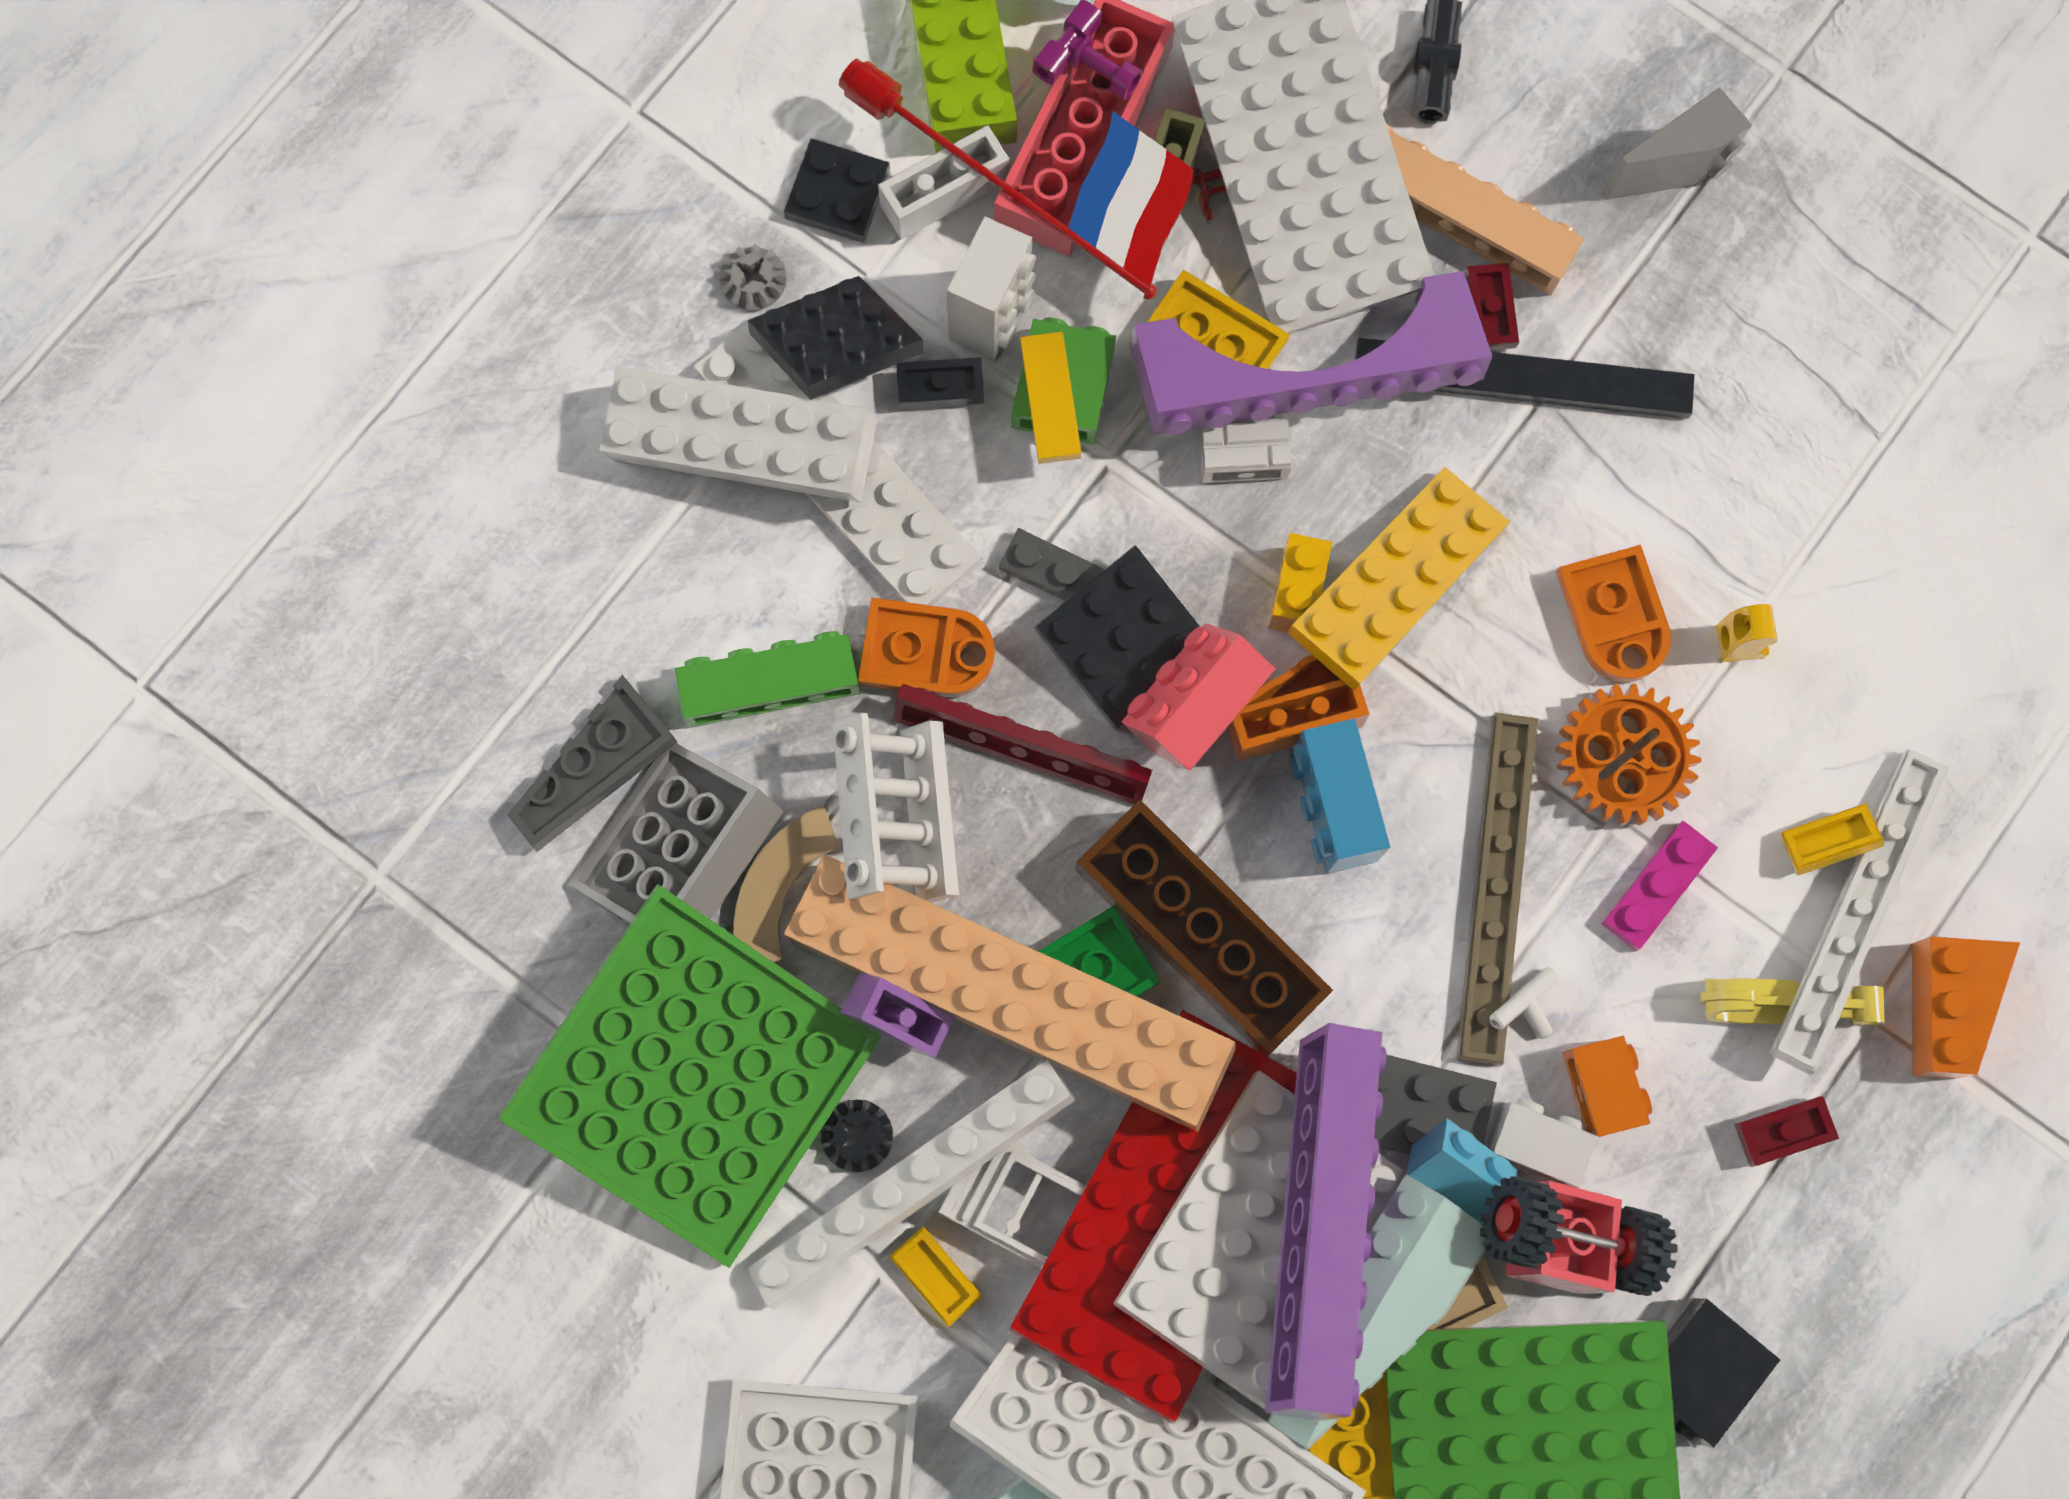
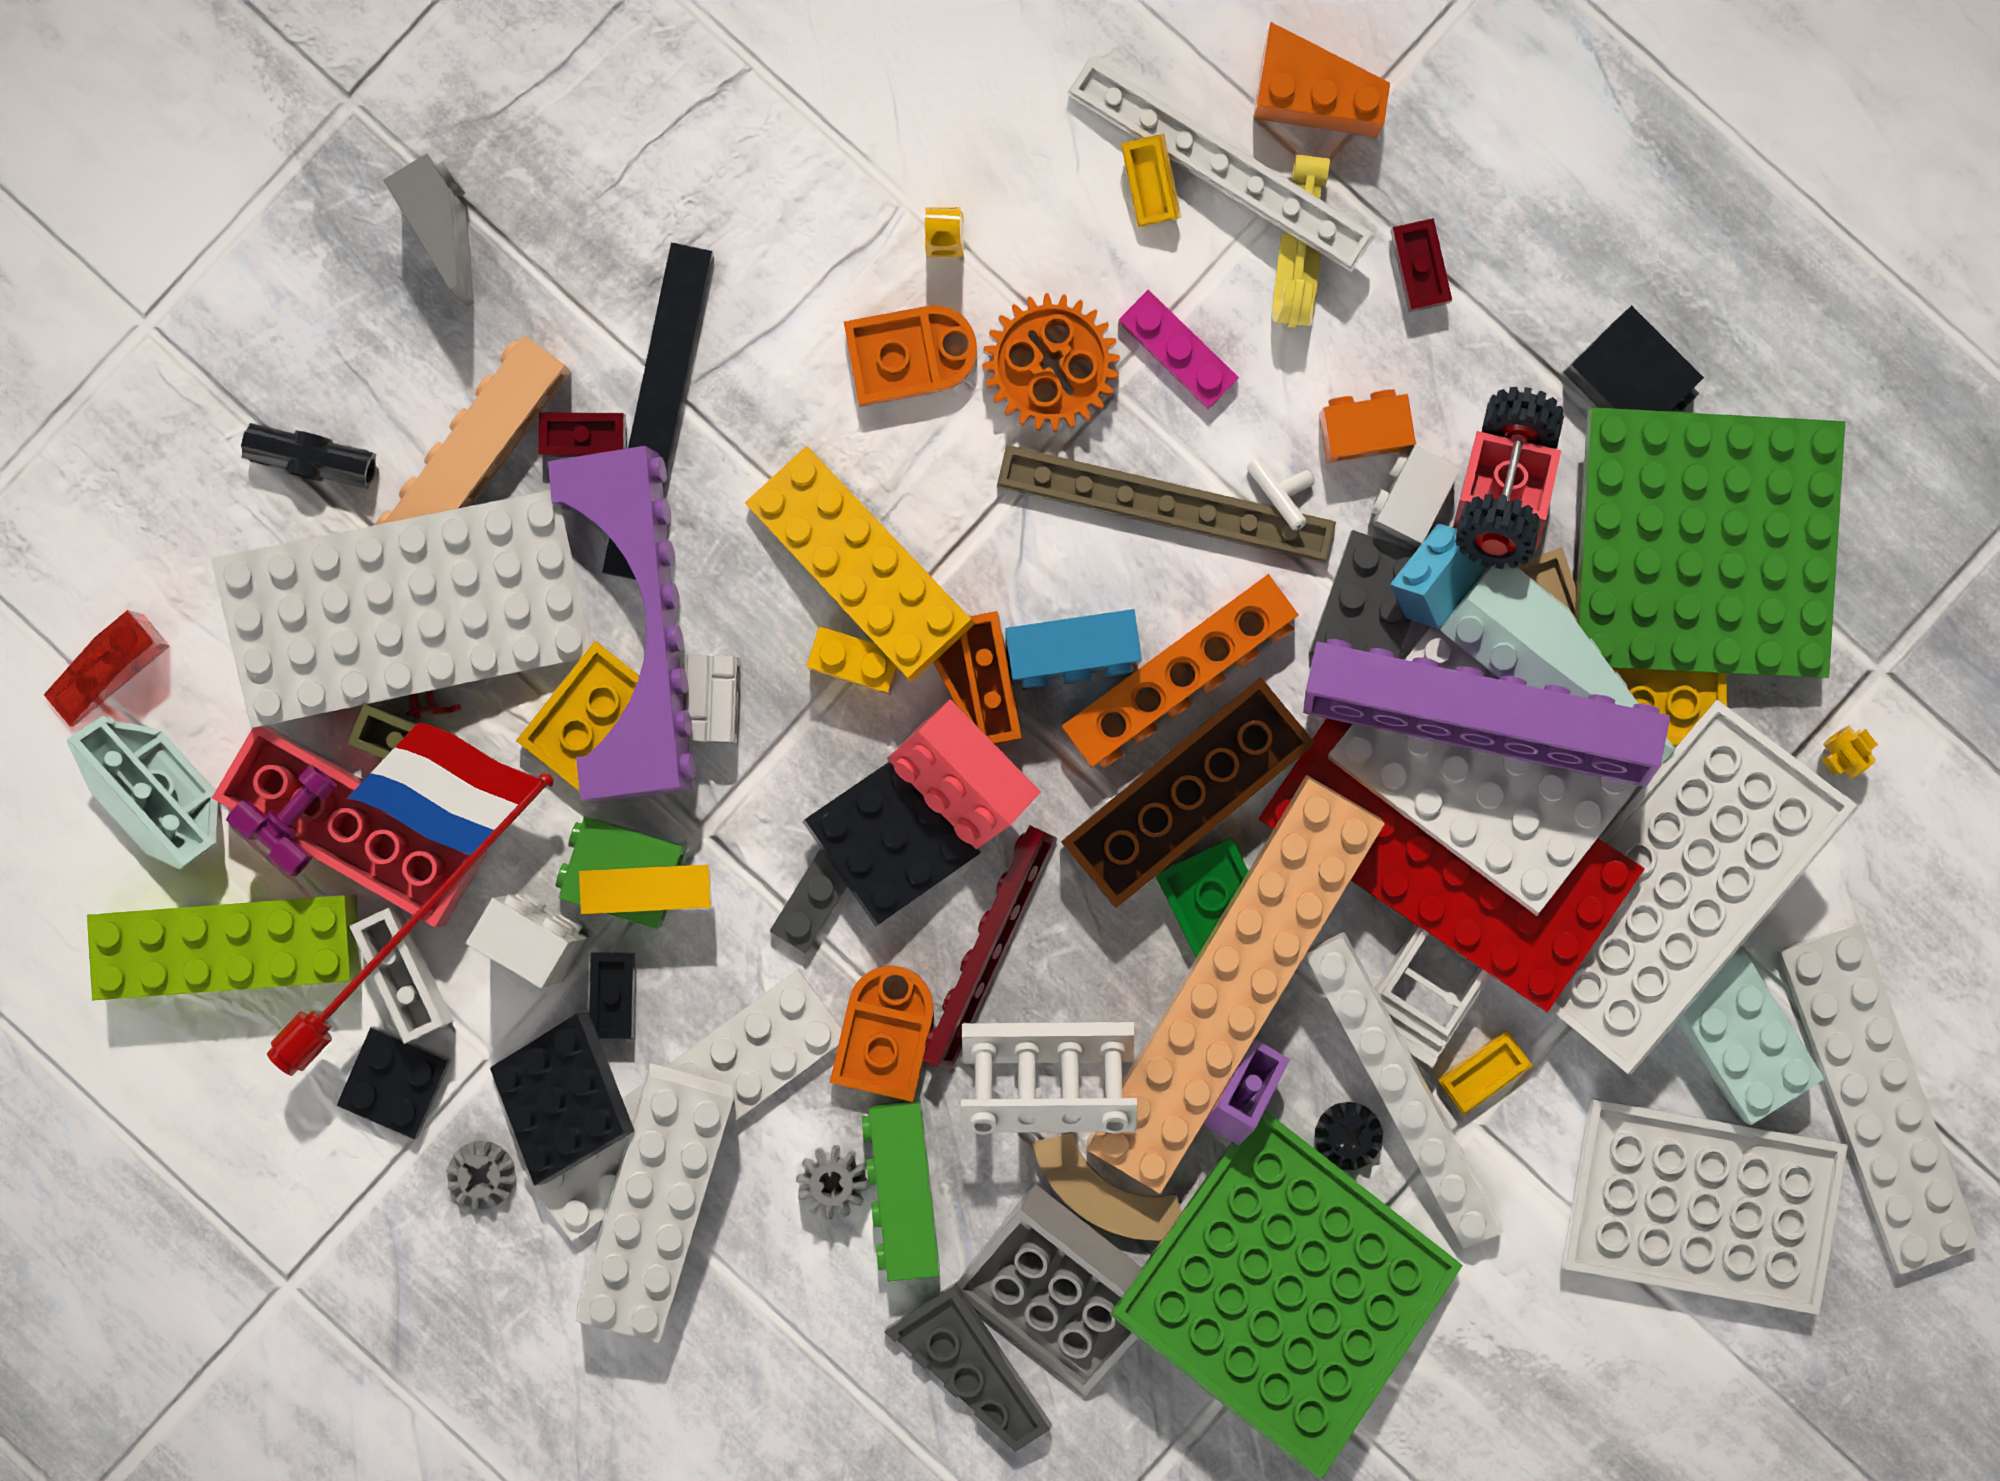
camera: 75 degrees left, 10 degrees up
(767, 596) = (847, 1181): none -> light grey gear
(1351, 920) = (1261, 599): none -> orange brick

